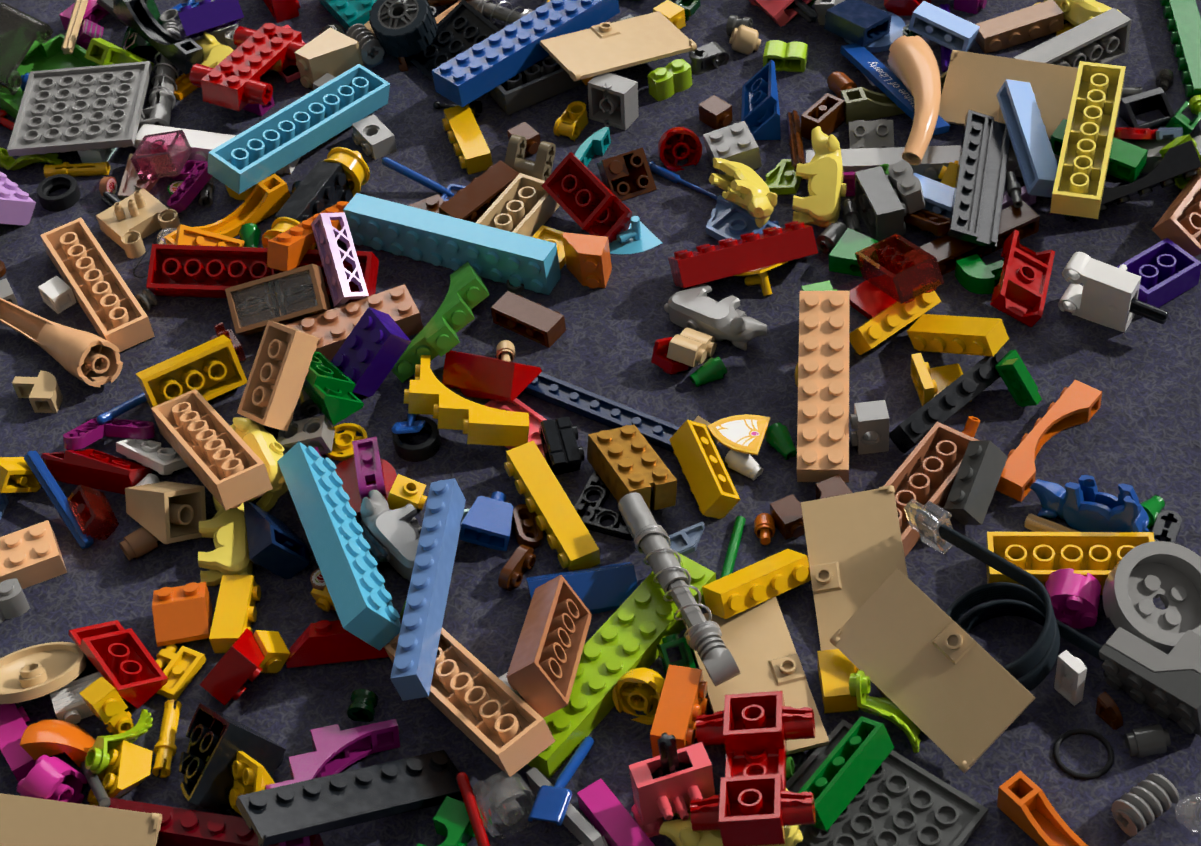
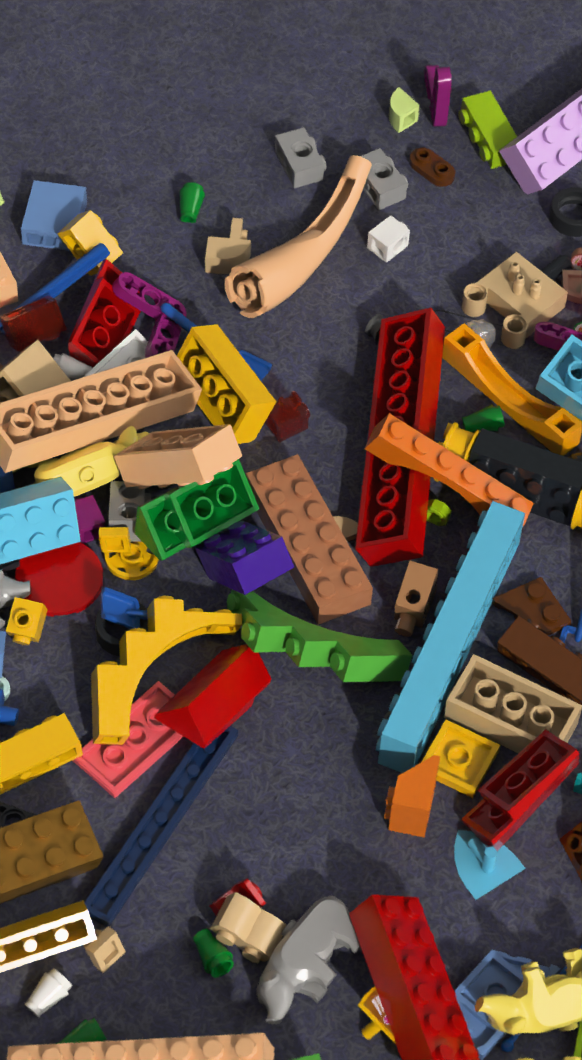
camera: 80 degrees right, 10 degrees up
(97, 285) = (396, 272): light nougat brick -> none
(192, 236) = (454, 372): light orange plate -> none
(278, 298) = (336, 452): clear brick -> none
(332, 261) = (388, 495): lavender fence -> none
(335, 441) = (114, 539): none -> yellow tile
(368, 466) = (72, 578): magenta plate -> none
(412, 266) = (420, 581): none -> medium nougat torso
(504, 349) = (267, 715): tan cylinder -> none
(528, 319) = (321, 737): brick -> none
(560, 445) = (86, 778): black brick -> none
(741, 432) = (79, 982): shield -> none

